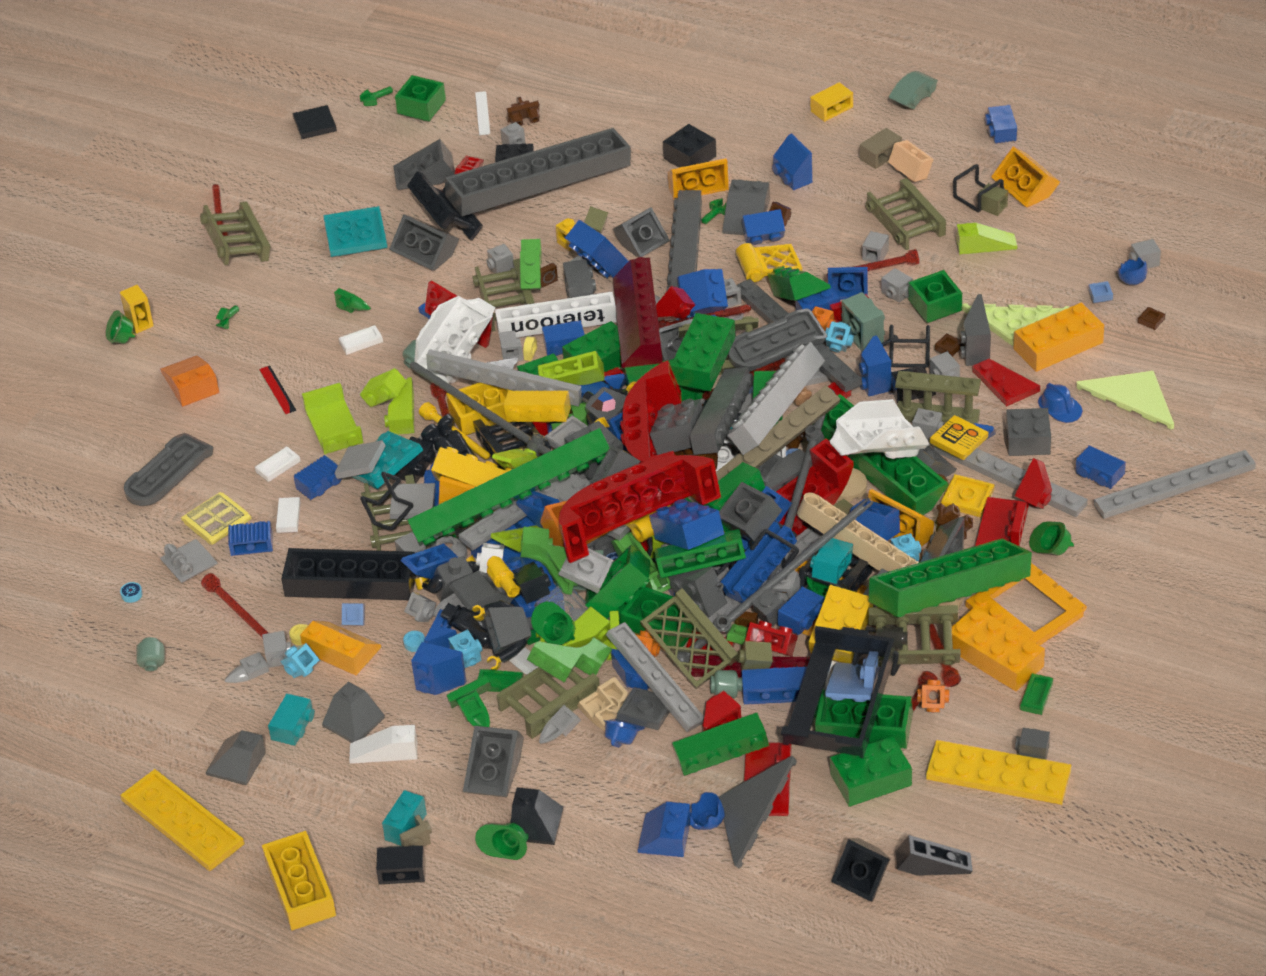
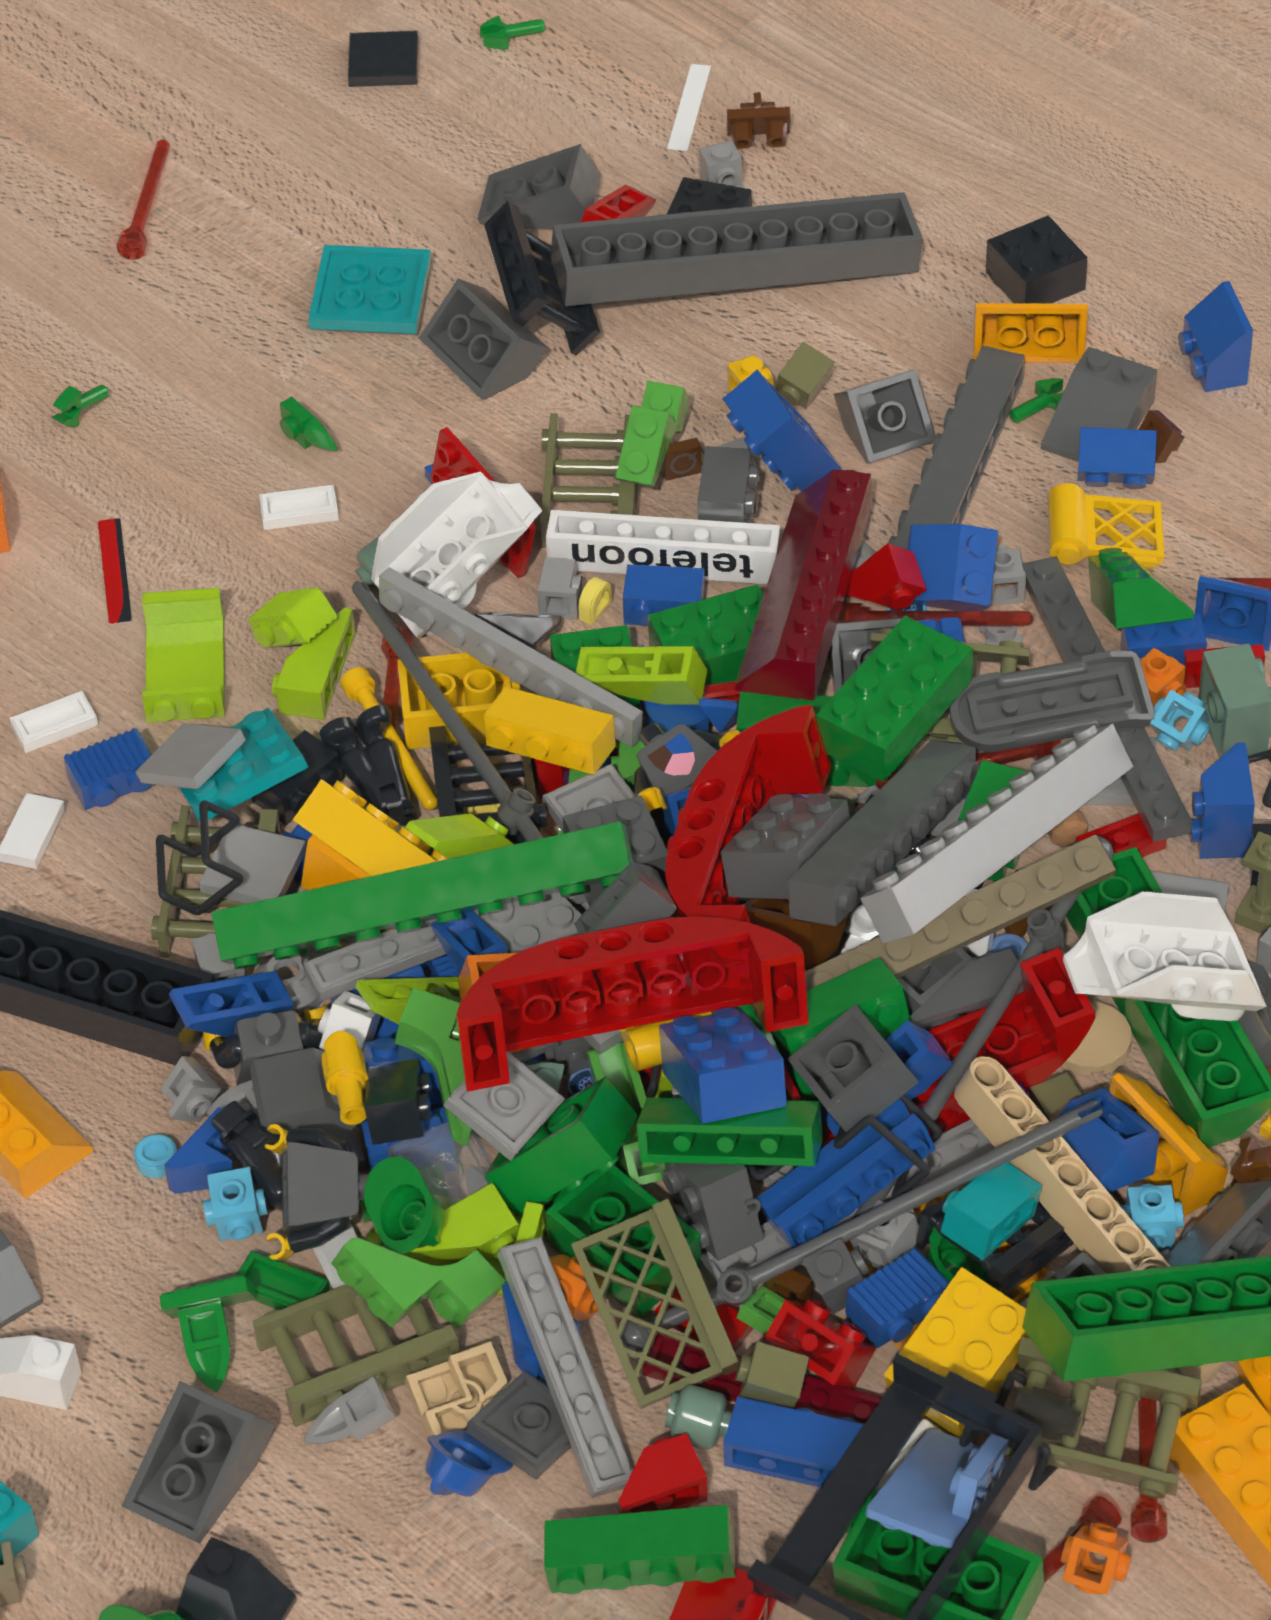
camera: 15 degrees right, 5 degrees up
(248, 224) = (185, 234): olive fence -> none
(353, 613) = (63, 1070): medium blue plate -> none
(420, 98) = (582, 54): green brick -> none
(437, 669) = (163, 1234): blue slope -> none
(499, 259) = (604, 407): light grey brick -> none

